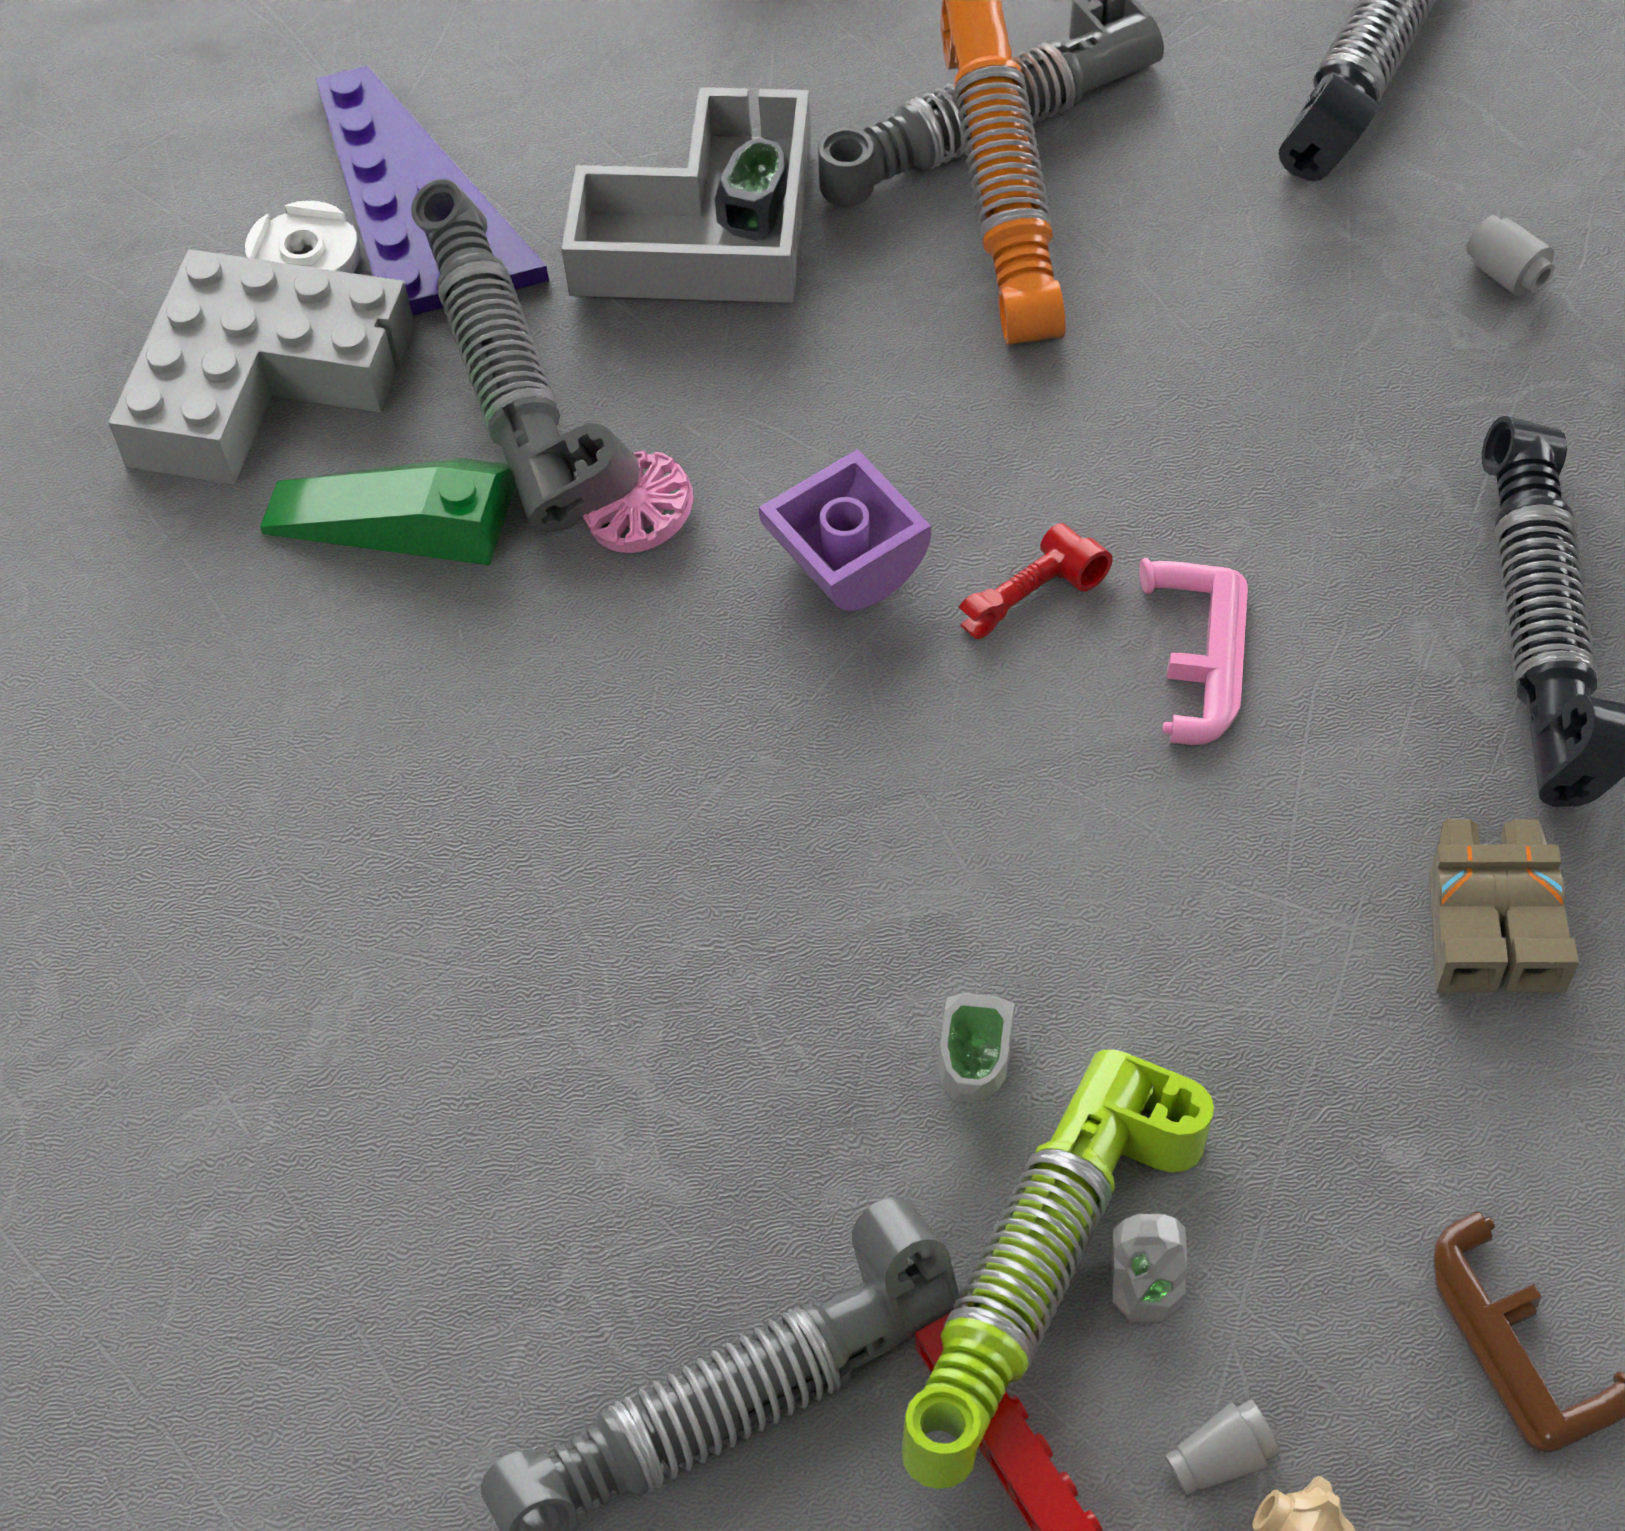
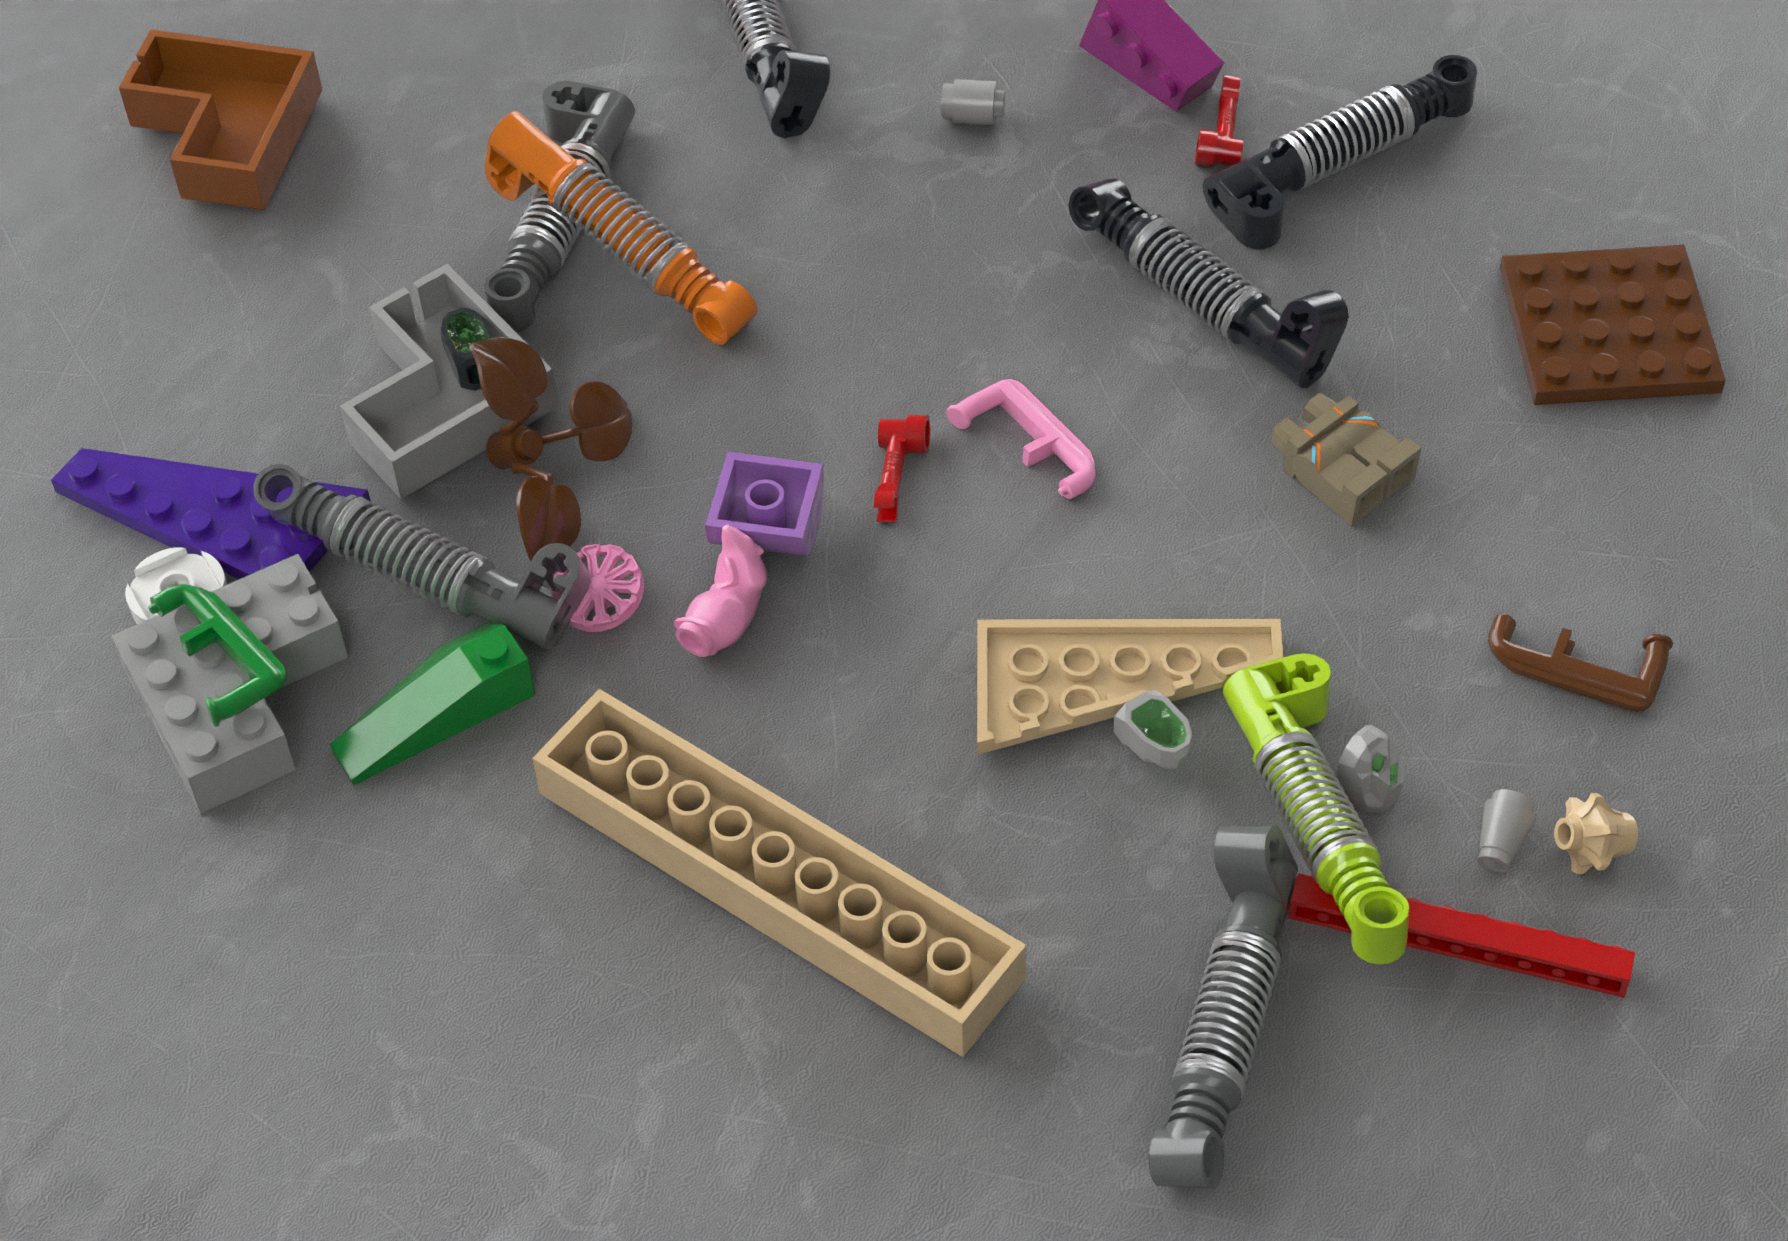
camera: 45 degrees left, 5 degrees down
(258, 329) = (236, 640): none -> green piece
(484, 912) = (782, 871): none -> tan brick
(692, 236) = (510, 381): none -> reddish brown plant
(726, 607) = (726, 610): none -> bright pink animal
(976, 922) = (1078, 672): none -> tan wing

